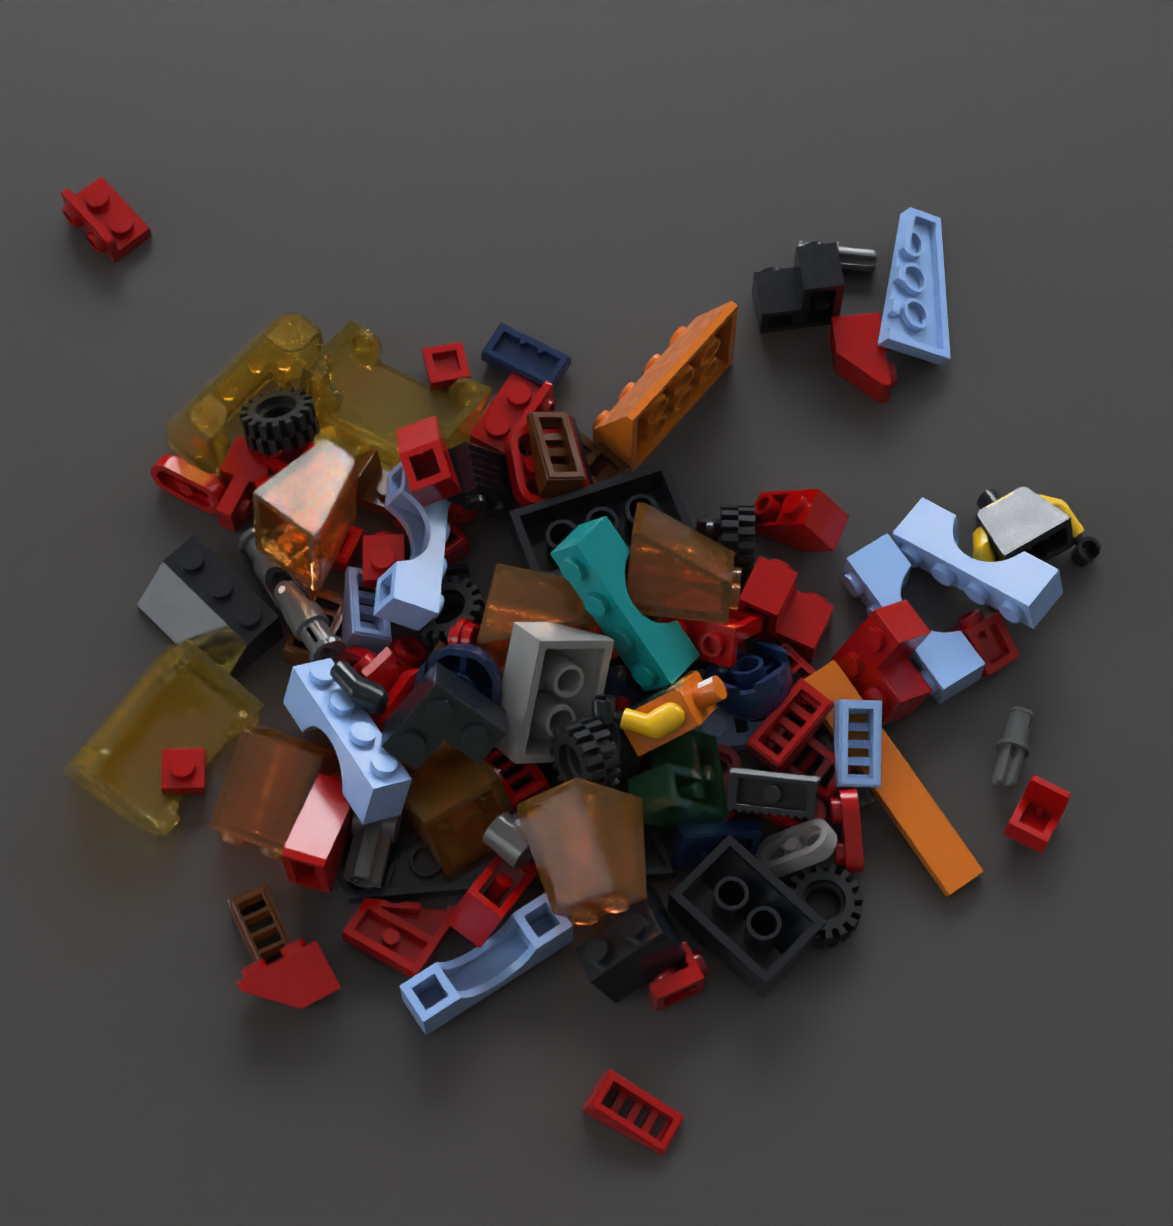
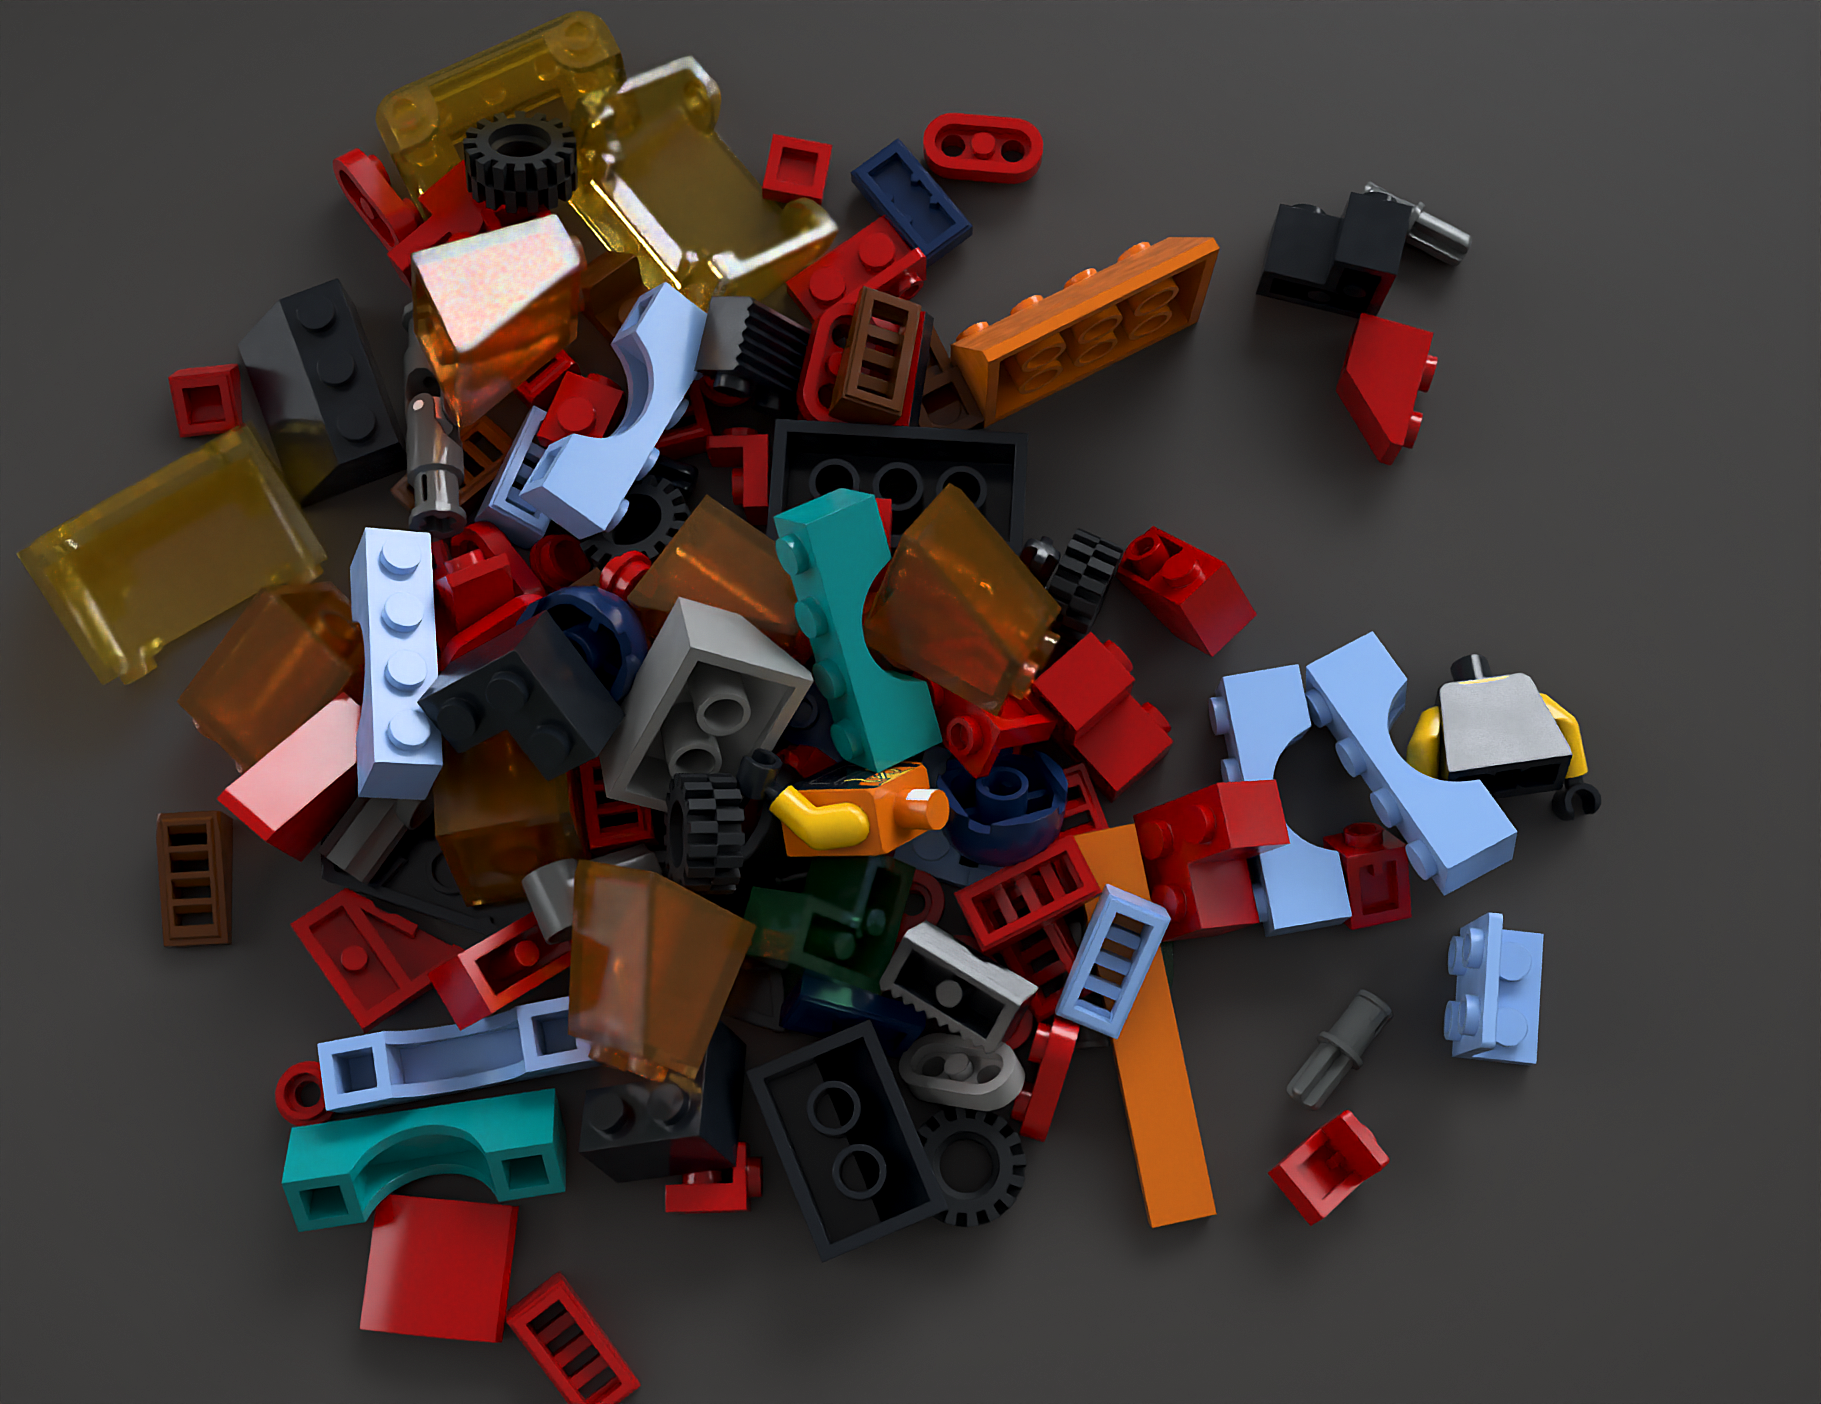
camera: 25 degrees right, 10 degrees up
(133, 646) = (206, 399): none -> red slope
(183, 771) = (190, 604): red plate -> none
(294, 979) = (195, 963): red slope -> none
(360, 690) = (434, 602): black arm -> none
(395, 1019) = (289, 1095): none -> red plate
(427, 461) = (678, 304): red slope -> none
(495, 544) = (751, 483): none -> red bracket
(529, 1098) = (439, 1268): none -> red slope
(533, 1006) = (348, 1166): none -> teal arch
(553, 308) = (983, 144): none -> red plate
(916, 291) = (1499, 328): light blue wing -> none
(1088, 677) = (1495, 992): none -> light blue bracket

